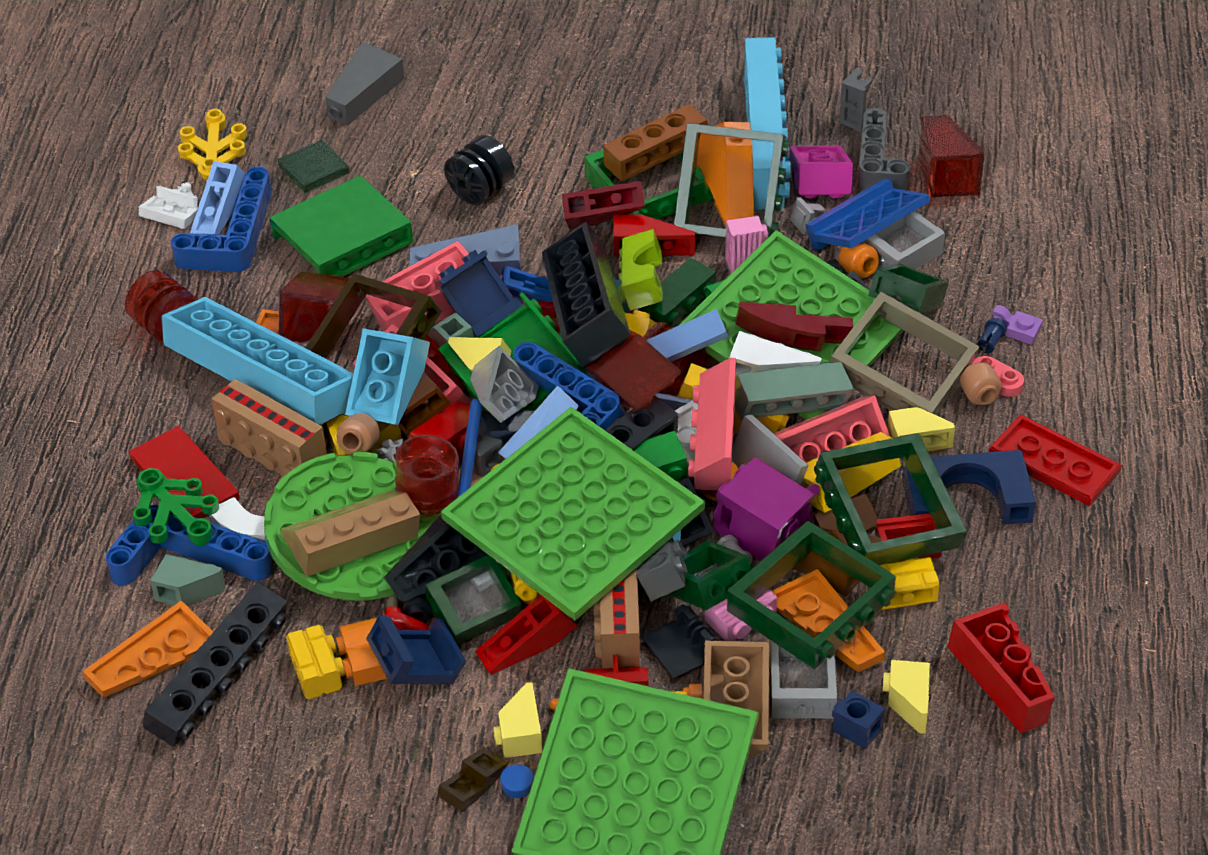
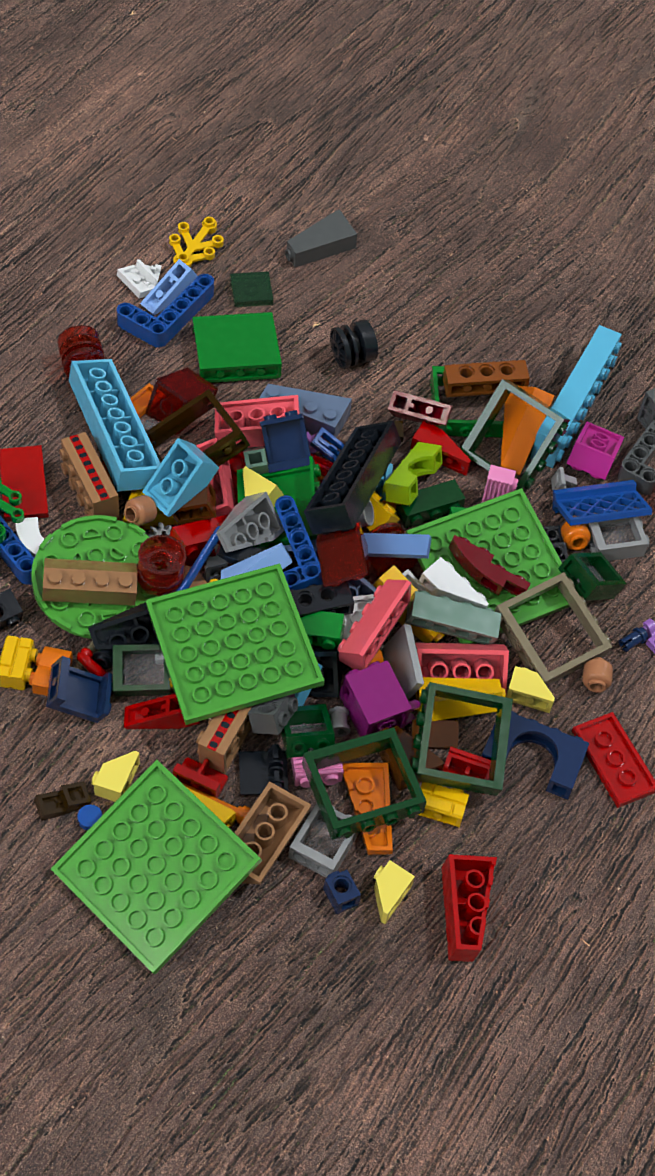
camera: 20 degrees right, 10 degrees up
(1011, 379) = (620, 671): coral plate -> none

